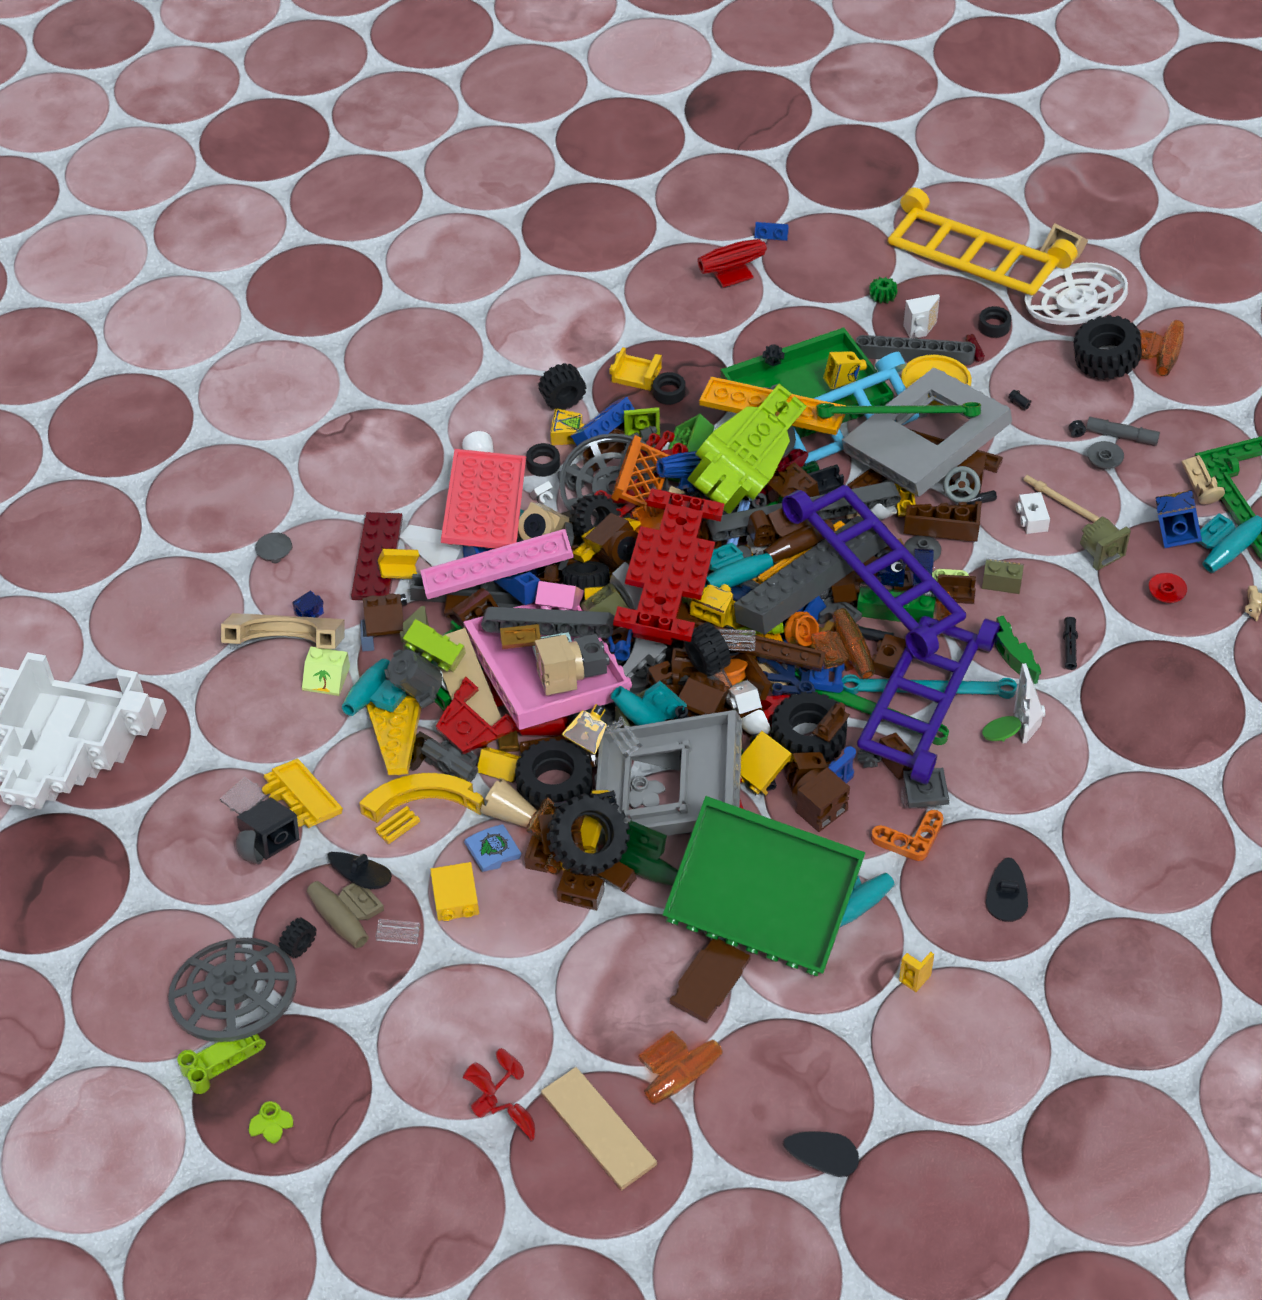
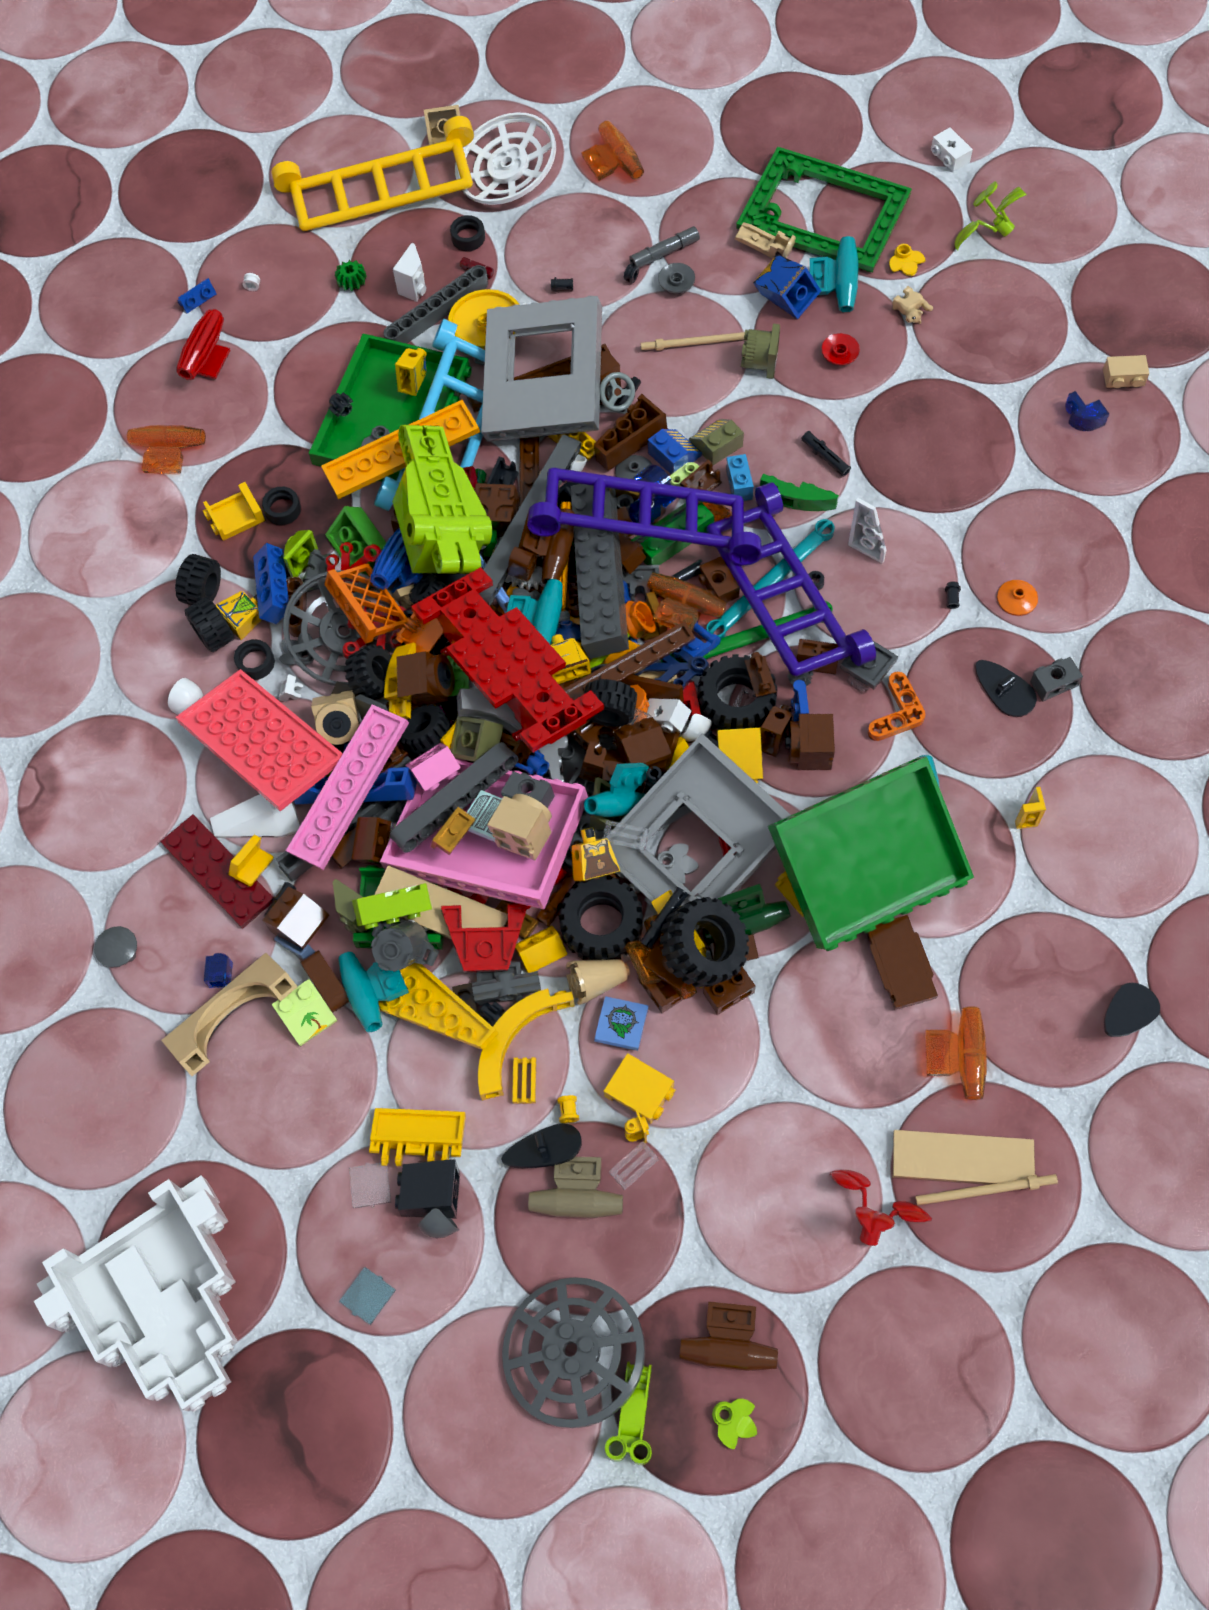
camera: 45 degrees left, 15 degrees up
(168, 852) = (367, 1295): none -> clear light blue piece
(297, 937) = (572, 1255): black tyre -> none
(322, 1076) = (729, 1341): none -> reddish brown plate
(357, 663) = (325, 981): none -> reddish brown beam
(400, 862) = (568, 1109): none -> yellow bush
(422, 906) = (636, 1128): none -> yellow hinge
(423, 765) = (491, 1013): none -> black gear
(537, 415) = (209, 624): none -> black tyre
(618, 1179) = (1032, 1182): none -> tan bar
(642, 300) = (165, 445): none -> clear orange plate
(737, 636) = (625, 663): clear tile -> none
(815, 247) = (251, 282): none -> white bush
(959, 717) = (818, 575): none -> black bush
(965, 554) = (672, 449): none -> blue slope
(969, 409) = (456, 415): green piece -> none
(986, 606) = (739, 476): none -> dark azure brick
(1001, 728) = (862, 565): bright green piece -> none
(1033, 513) = (681, 370): white brick -> none
(1049, 798) = (952, 594): none -> black pin
(1054, 923) = (1049, 687): none -> dark grey brick
(1091, 851) = (1016, 604): none -> orange dish
(1104, 332) = (575, 167): black tyre -> none

